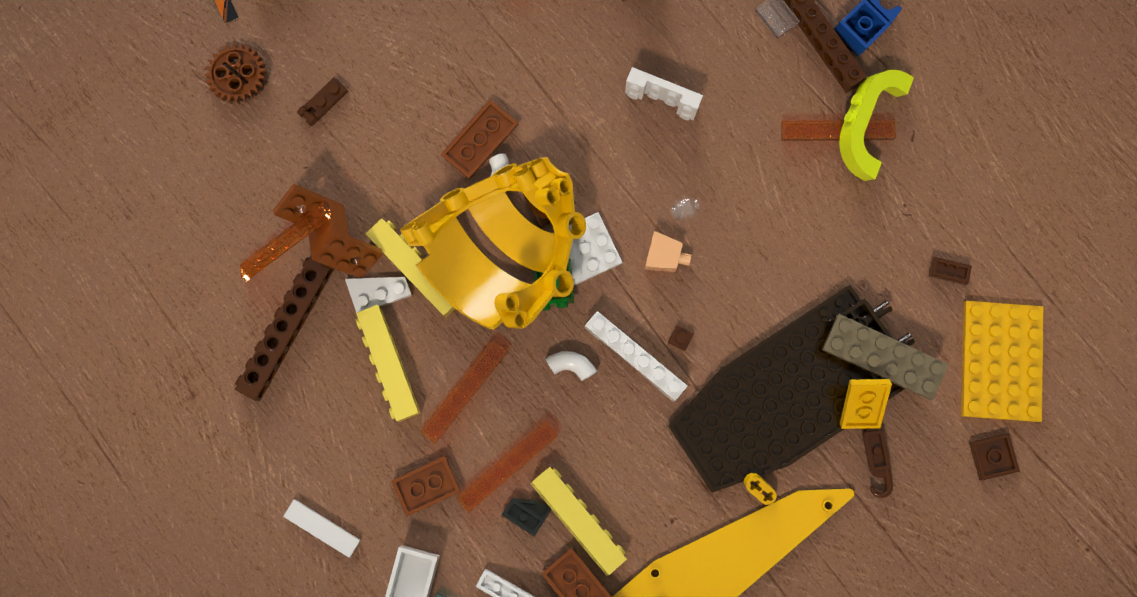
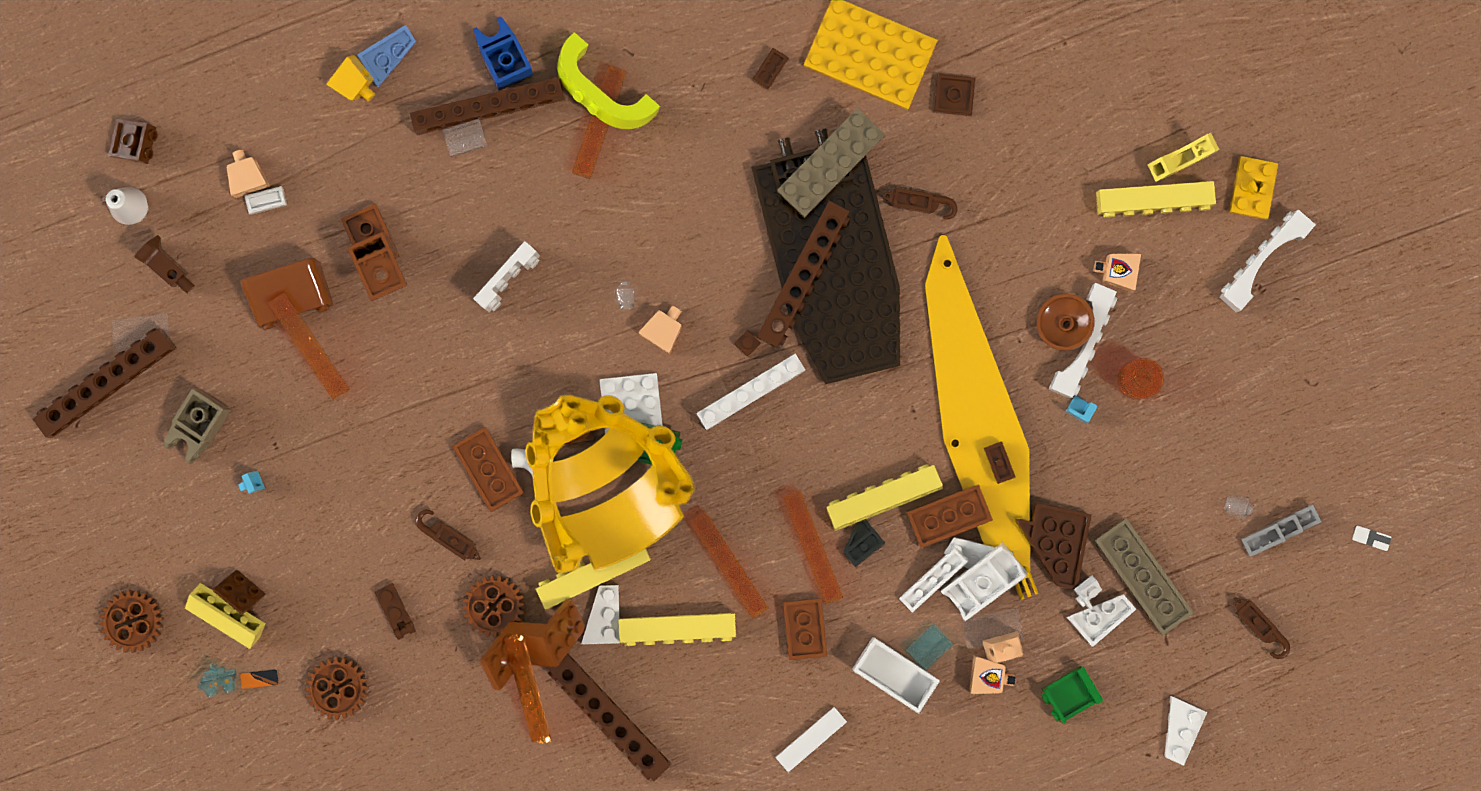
camera: 75 degrees left, 5 degrees up
(362, 171) = (480, 594): none -> dark orange gear
(404, 126) = (448, 538): none -> reddish brown plate
(571, 361) = (734, 454): white cylinder -> none
(757, 491) = (913, 323): yellow beam -> none
(836, 374) = (831, 212): none -> reddish brown brick
(865, 403) = (867, 197): yellow plate -> none

